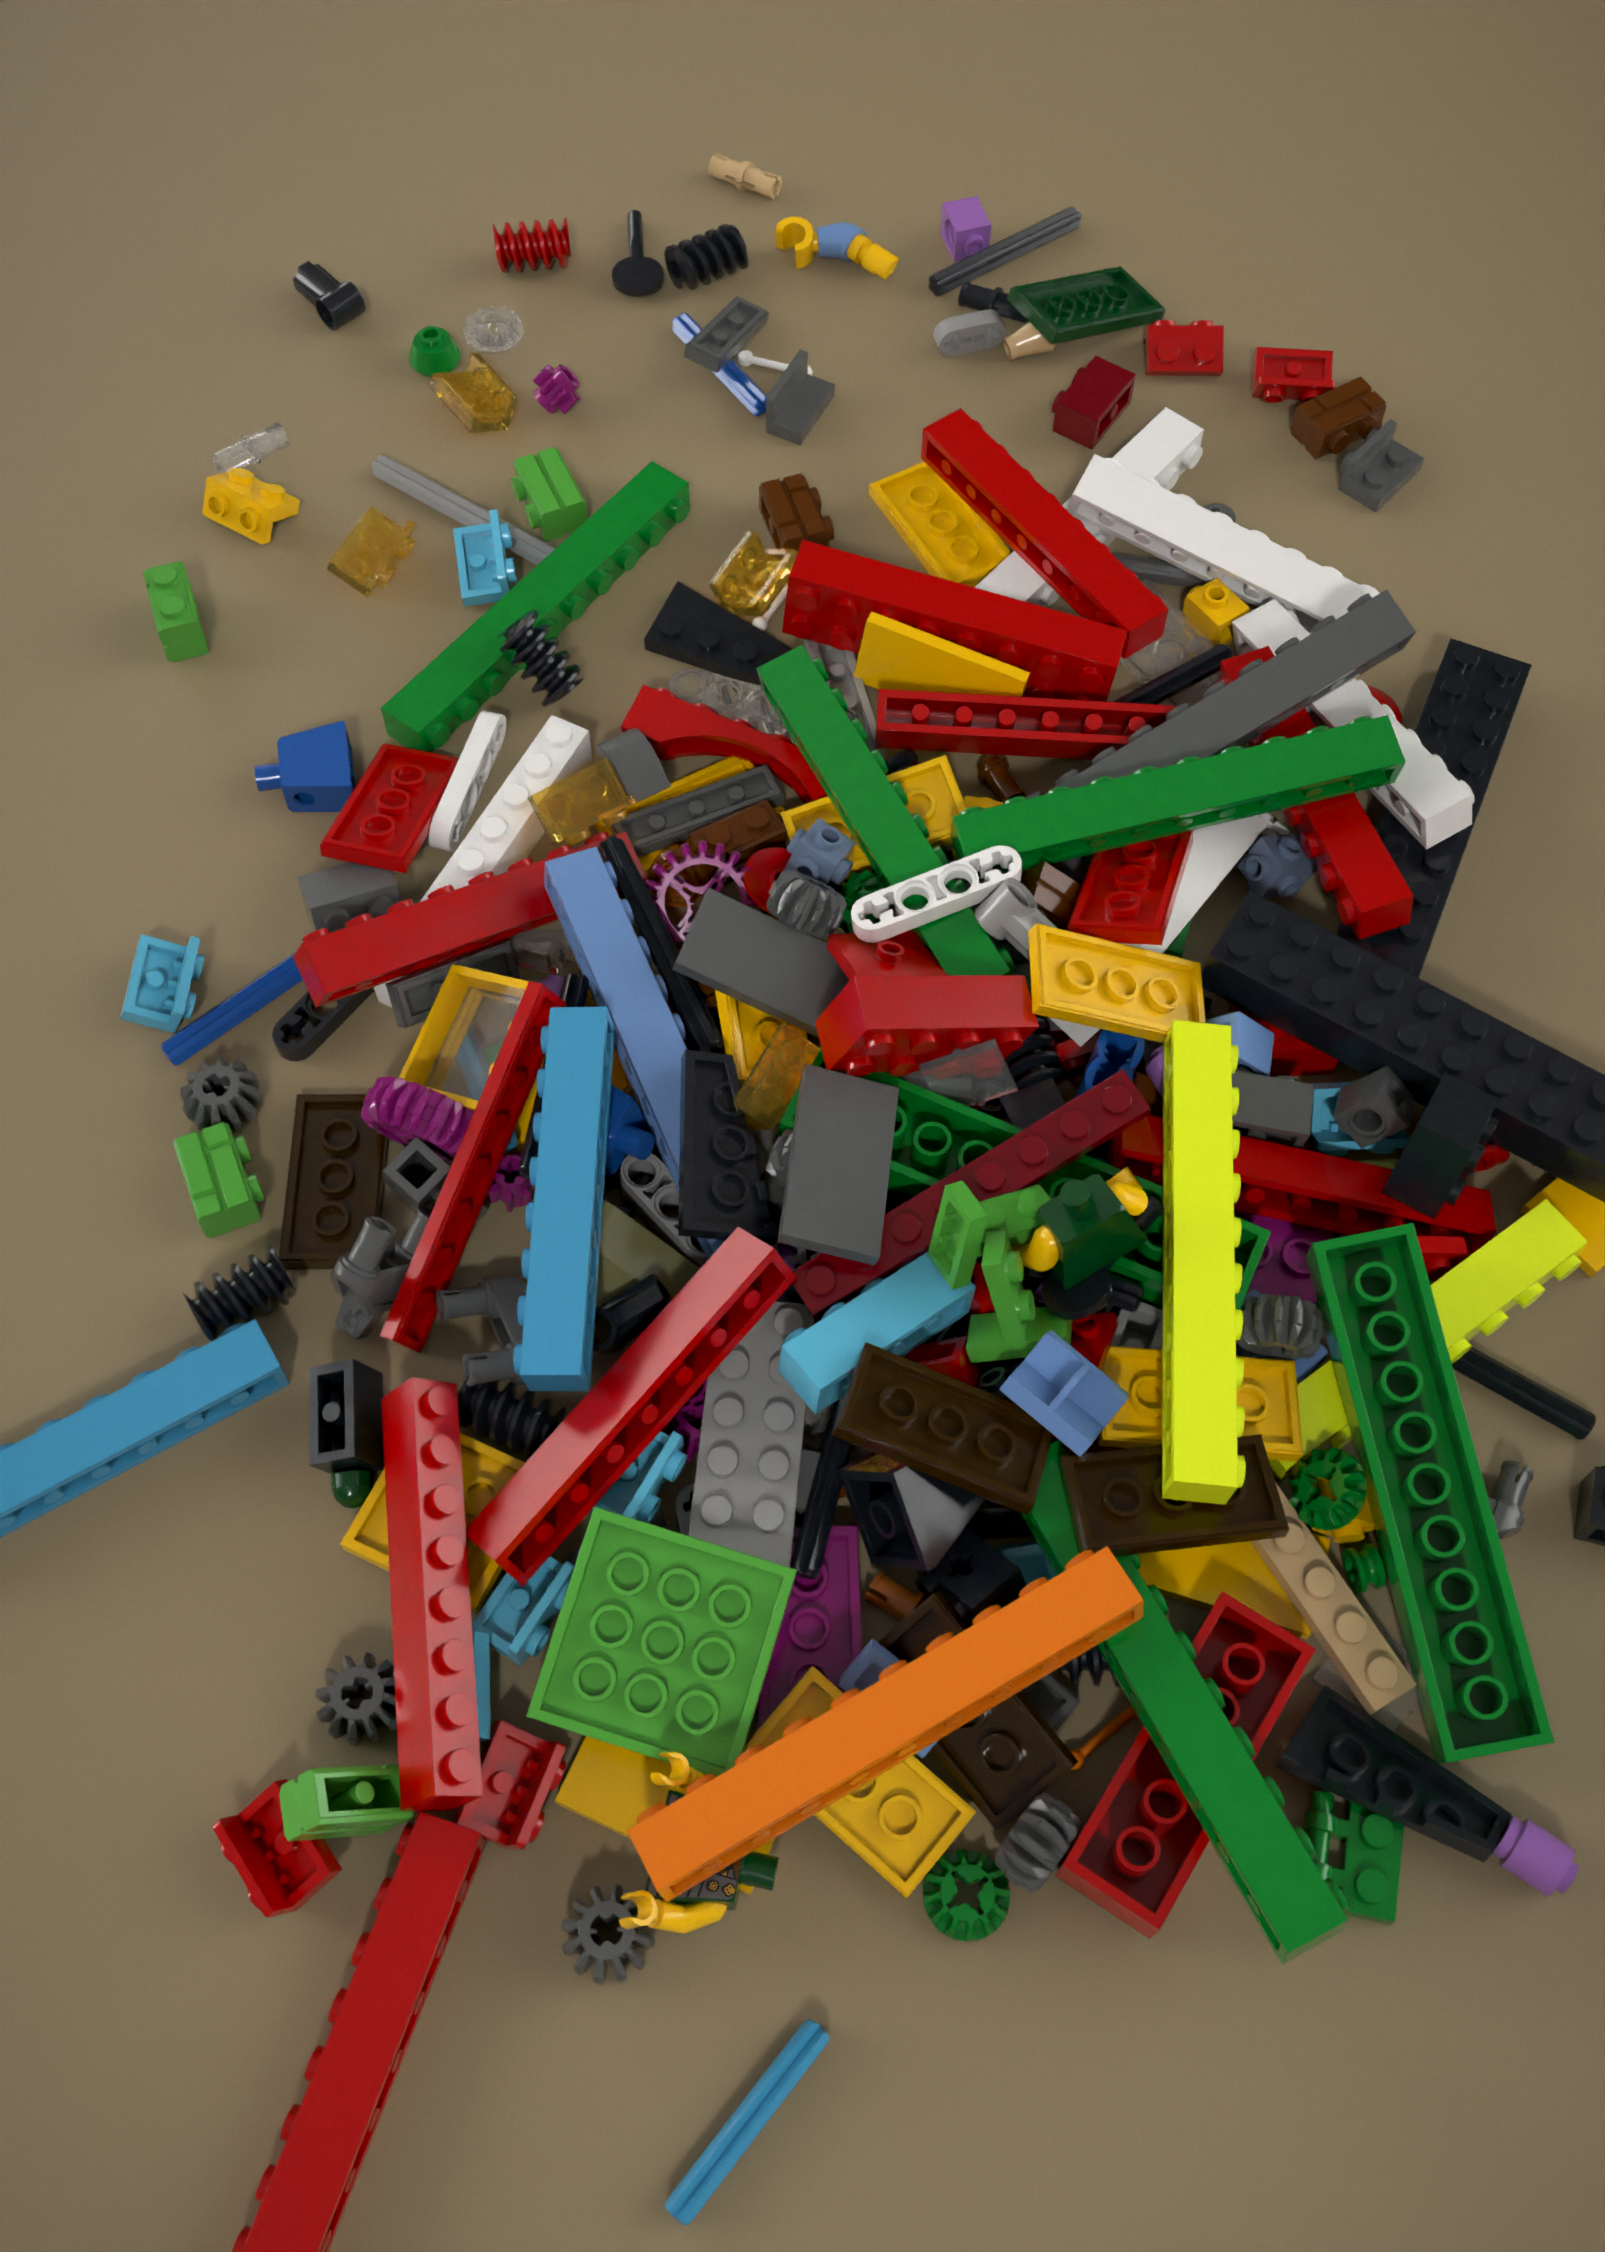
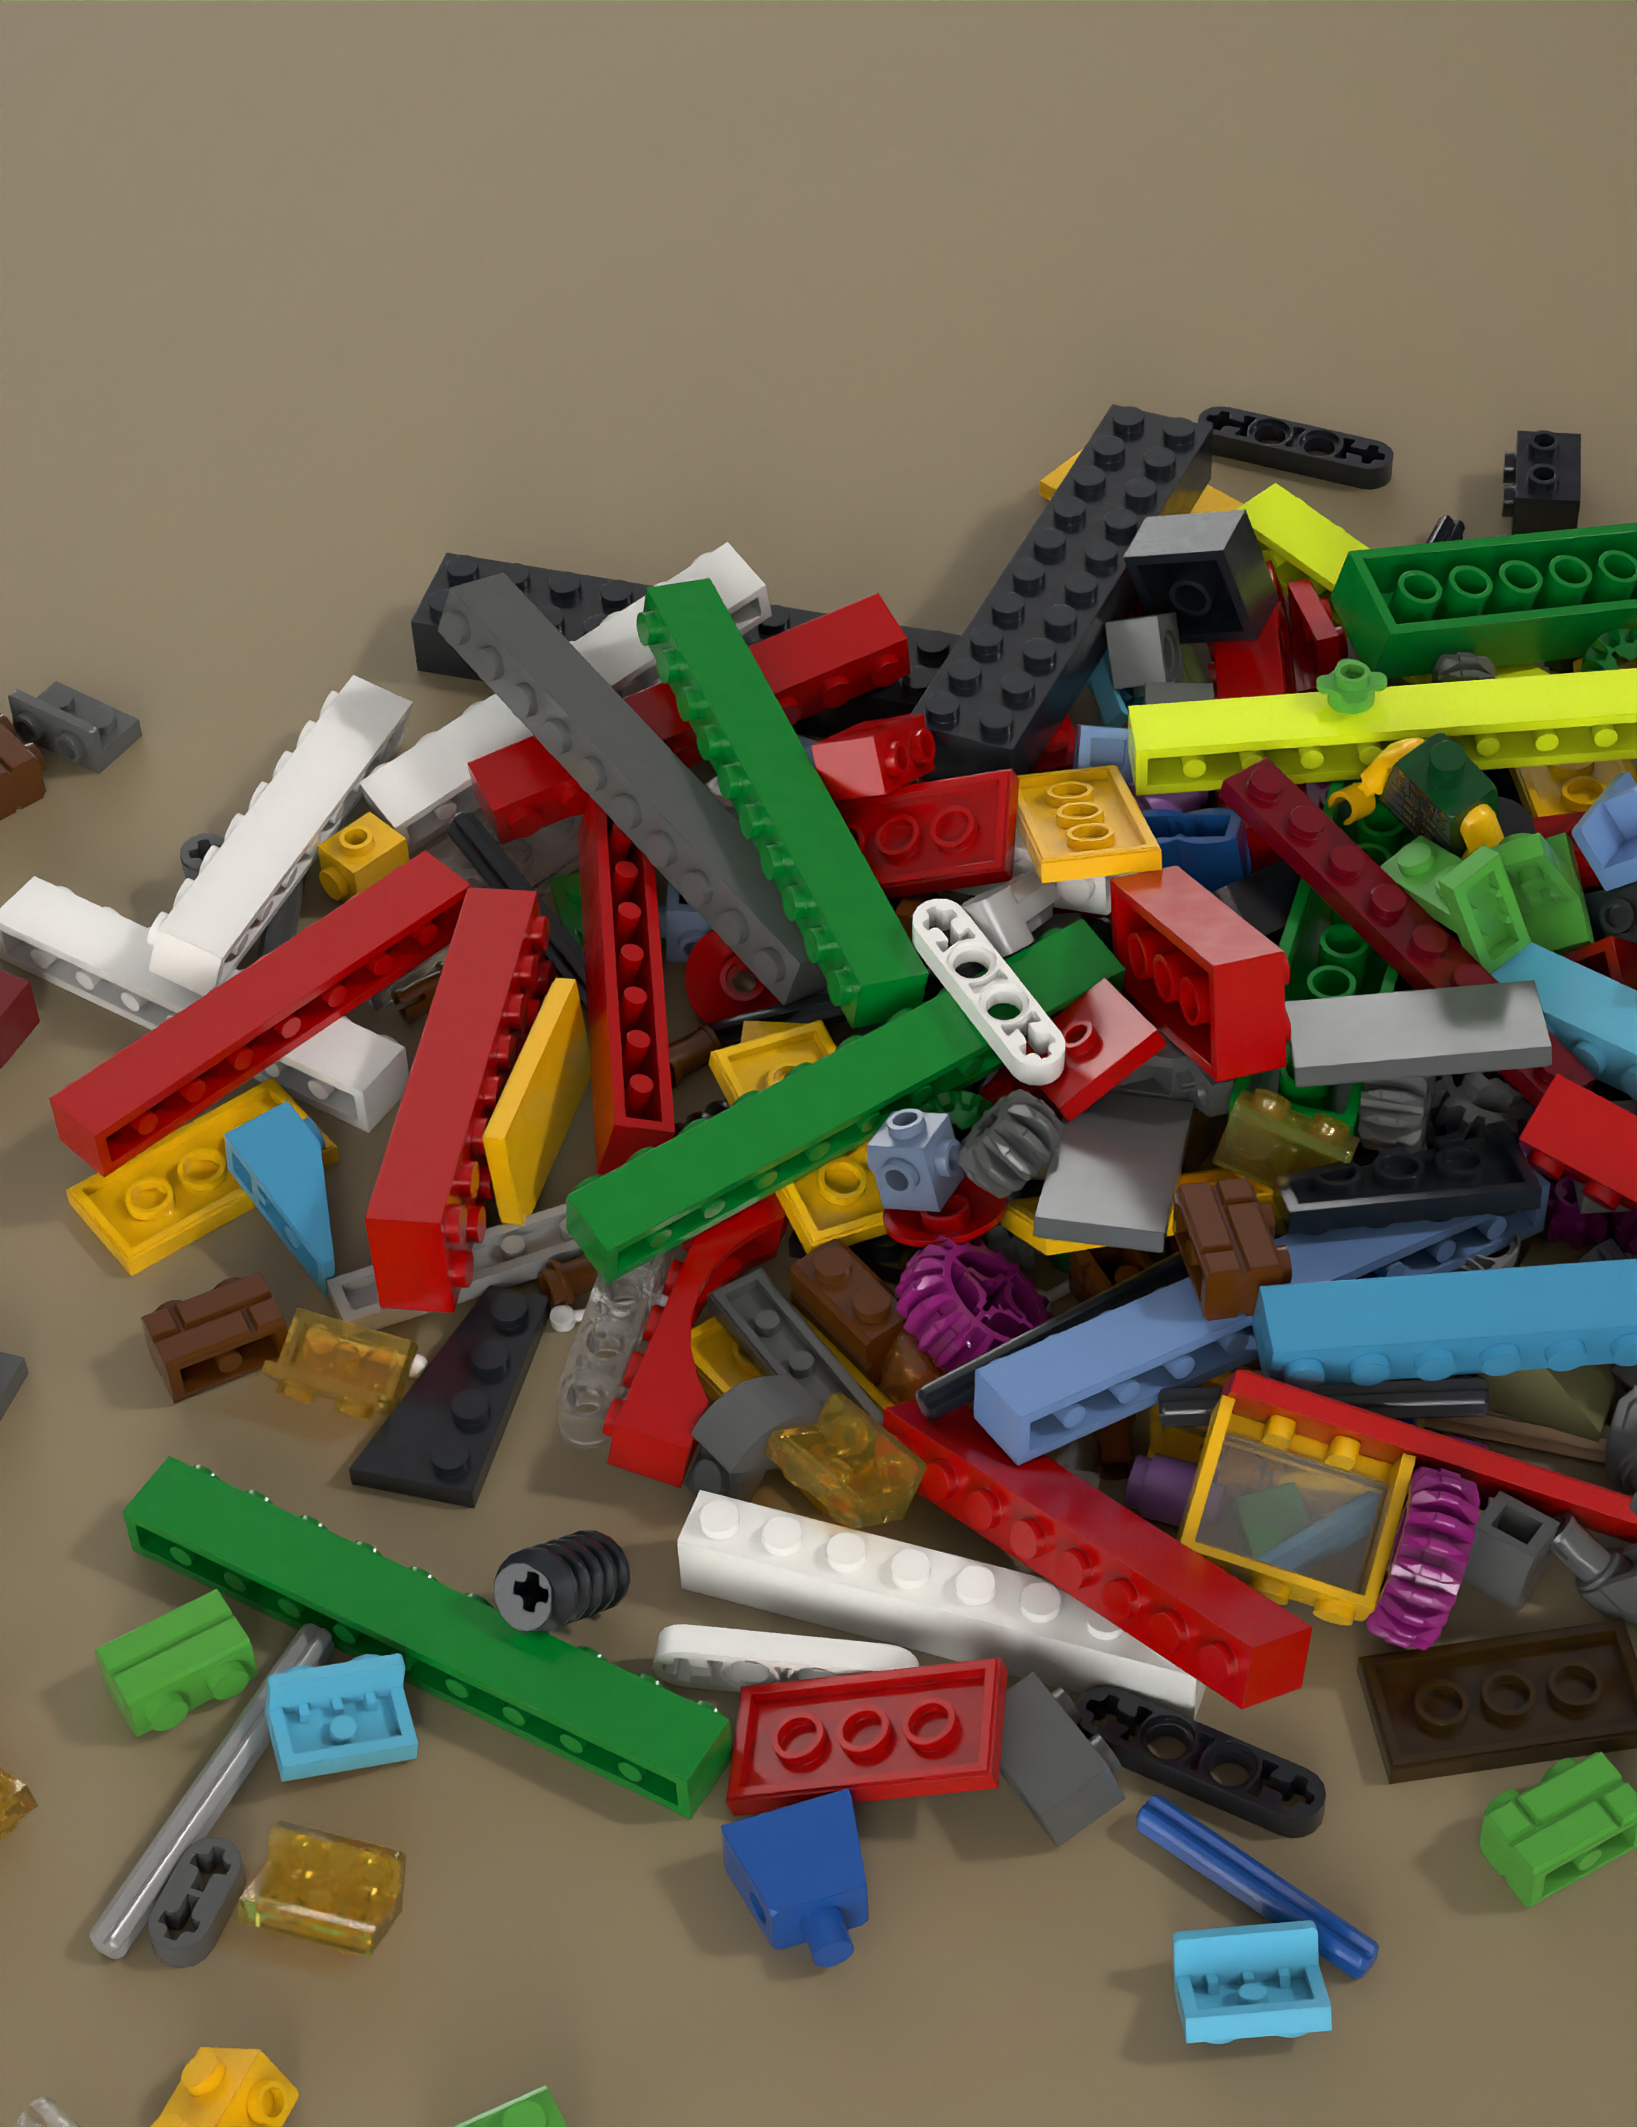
camera: 95 degrees left, 15 degrees down
(221, 1094) = (1426, 1858): dark grey gear -> none
(396, 501) = (208, 1907): none -> dark grey beam
(664, 1008) = (1228, 1246): none -> reddish brown brick
(915, 543) = (283, 1174): none -> dark azure slope
(1208, 861) = (875, 756): none -> red brick
(1217, 1190) = (1351, 686): none -> bright green plate

